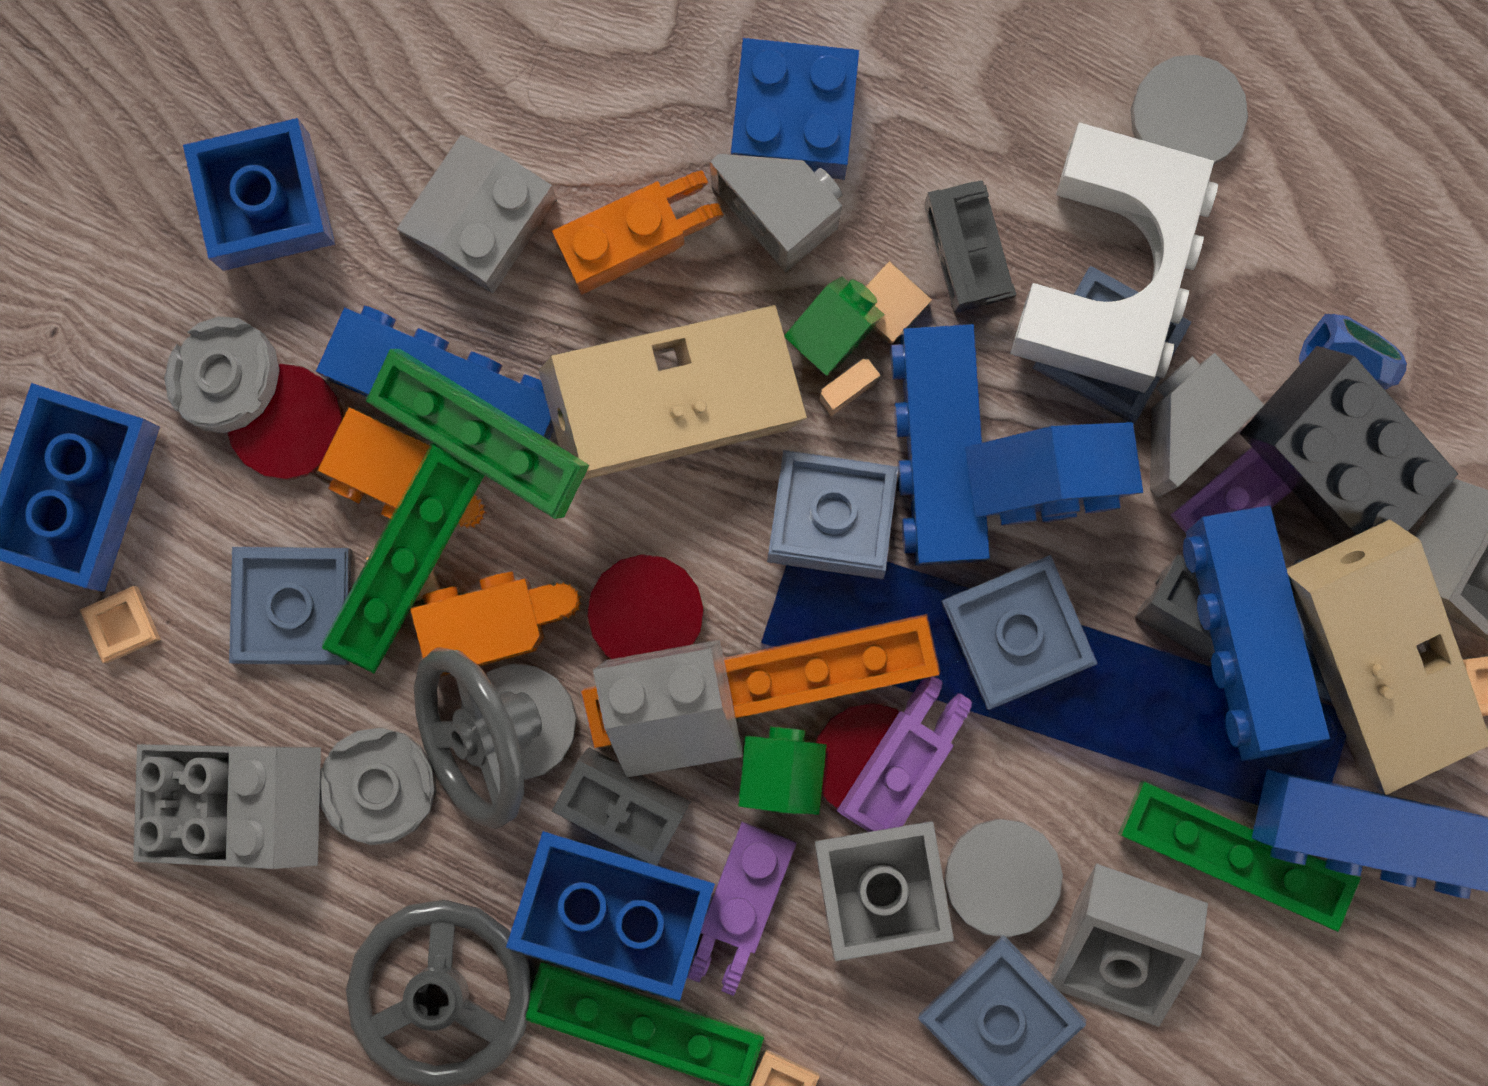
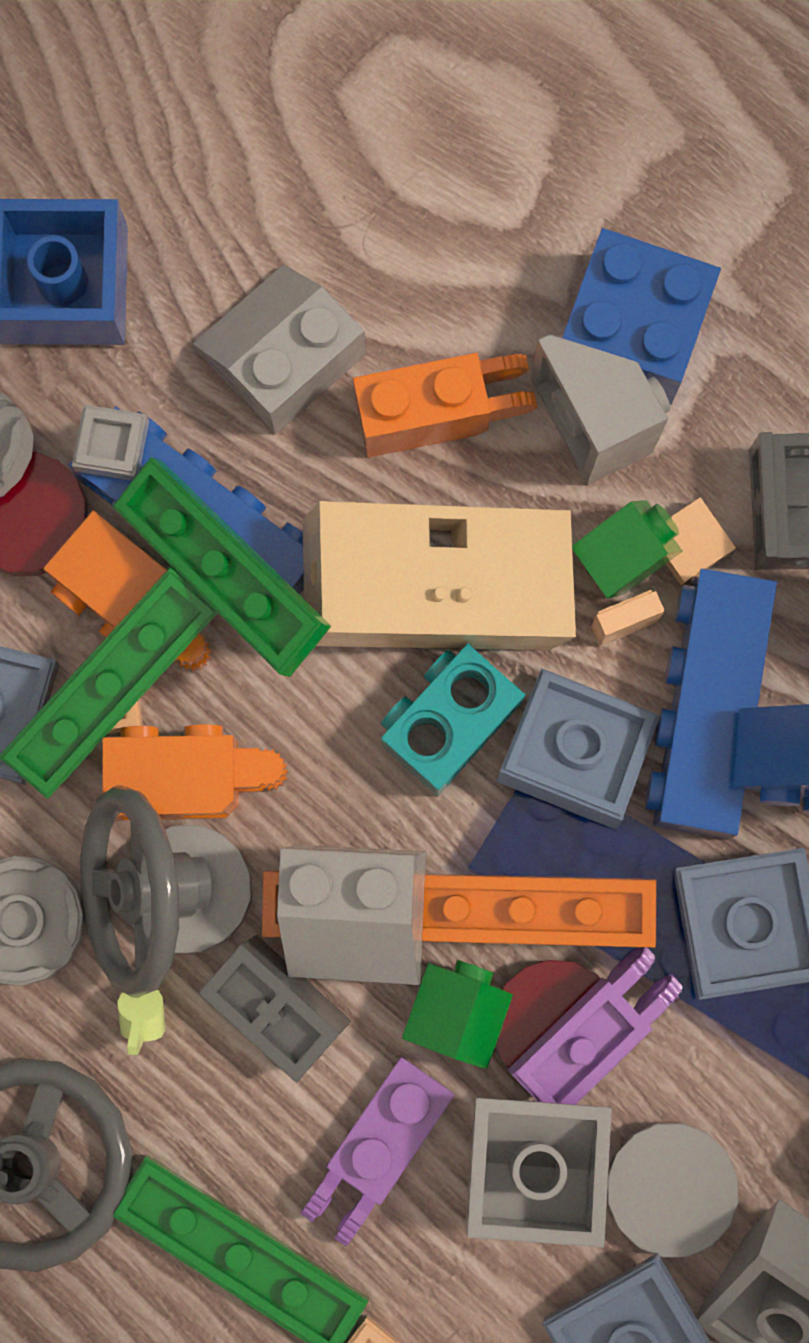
camera: 15 degrees right, 5 degrees down
(349, 342) = (110, 442): none -> light grey tile
(506, 846) = (141, 1019): none -> yellowish green piece
(610, 916) = (233, 1125): blue brick -> none
(644, 607) = (353, 798): dark red tile -> none
(726, 521) = (463, 728): none -> teal brick

